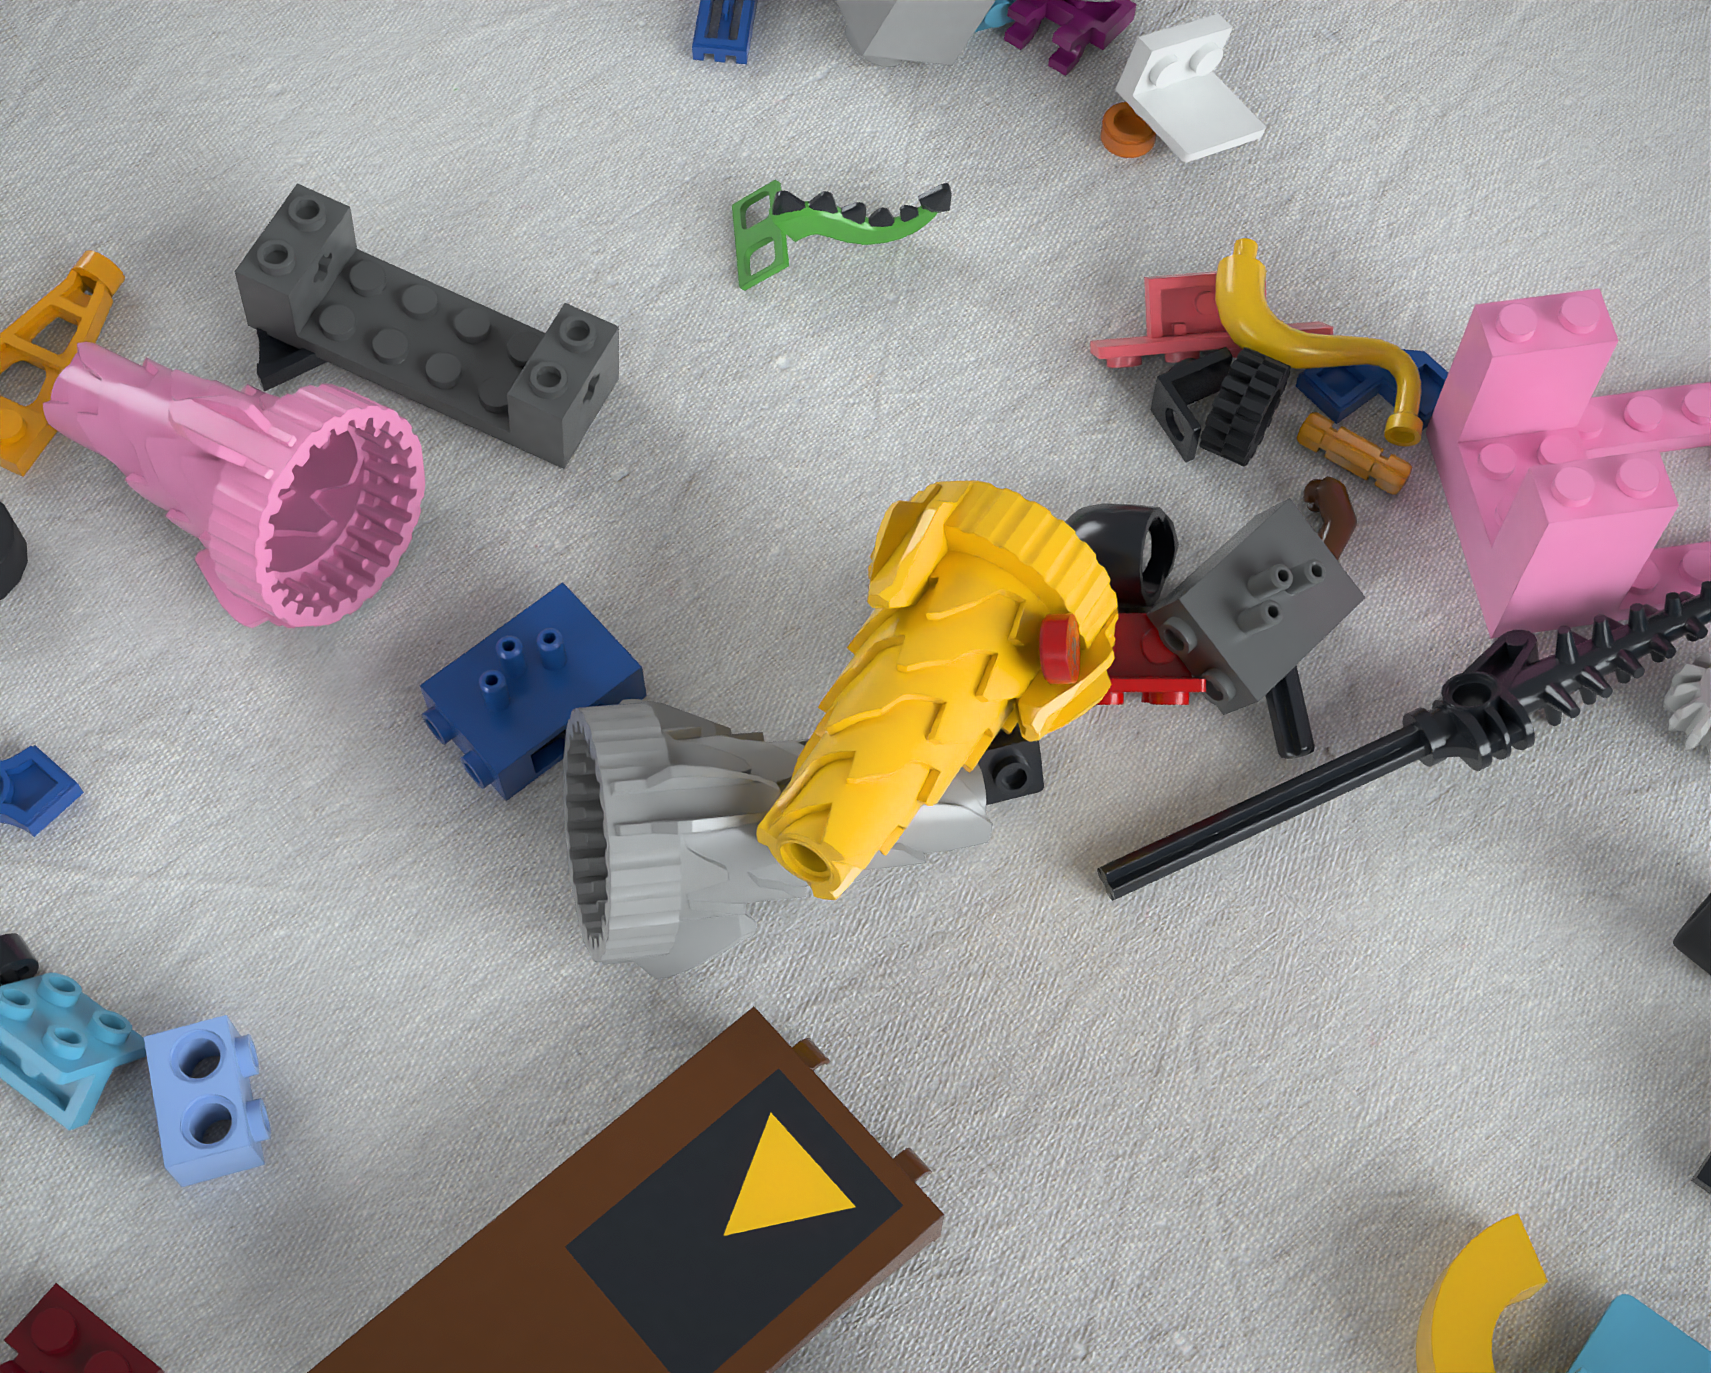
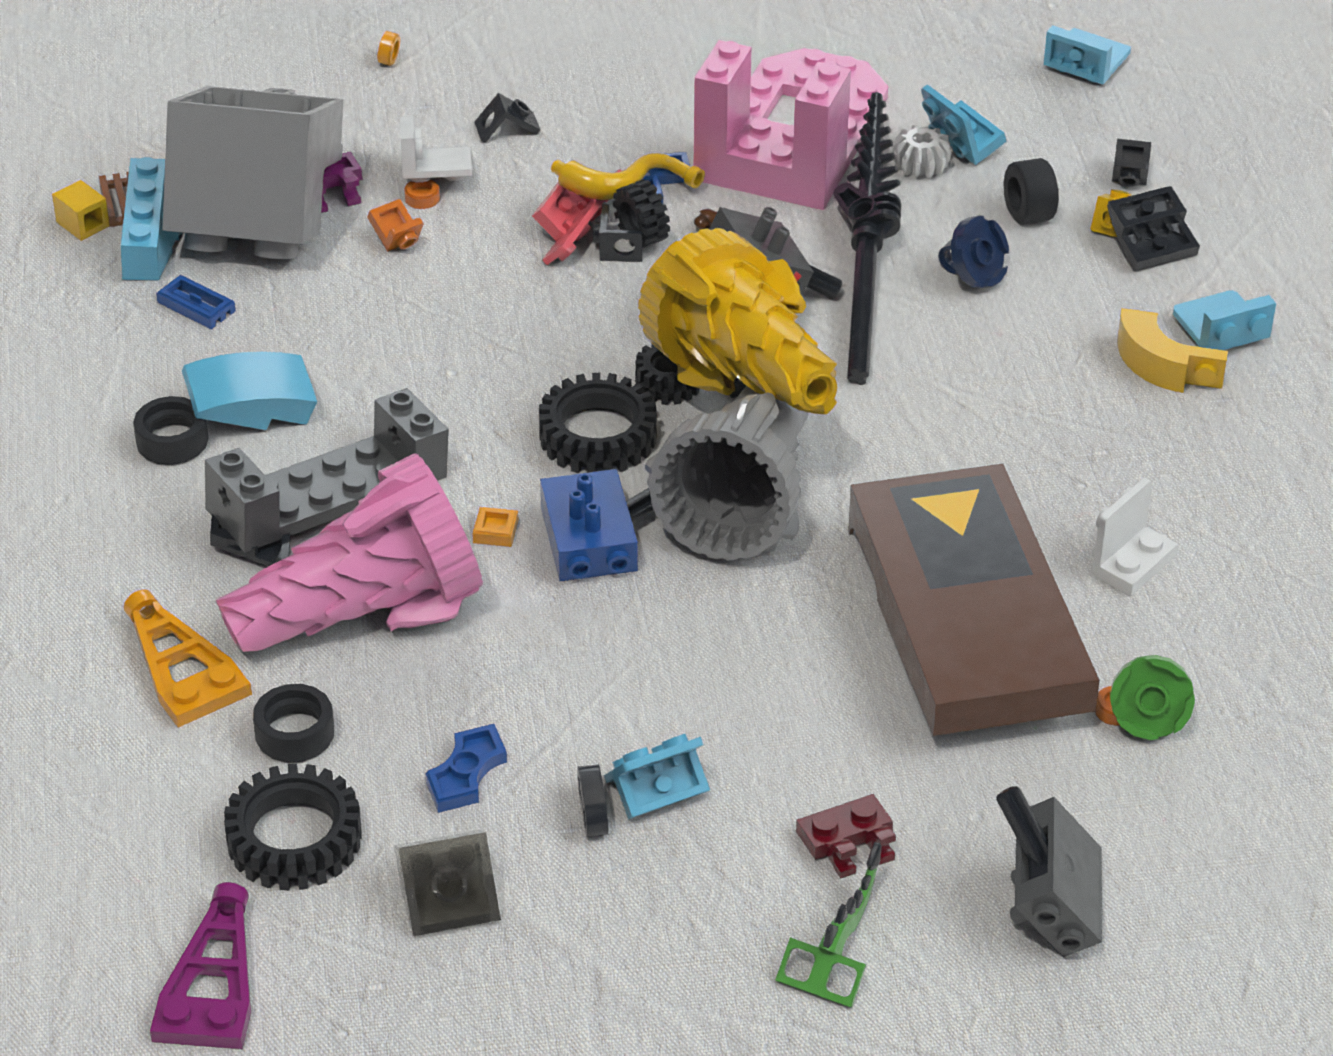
camera: 60 degrees left, 20 degrees down
(191, 1105) = (736, 727): light blue brick -> none
(437, 91) = (174, 448): none -> black tyre
(486, 579) = (495, 526): none -> light orange tile
(559, 159) = (250, 388): none -> medium azure slope
(762, 529) = (601, 395): none -> black tyre
(822, 217) = (379, 314): bright green piece -> none
(1021, 135) = (395, 225): none -> orange bracket
(1060, 648) = (776, 264): red tile -> none
(1354, 453) = (693, 201): light orange axle -> none
(1371, 137) = (505, 108): none -> black bracket
(1505, 916) = (976, 252): none -> dark blue tile

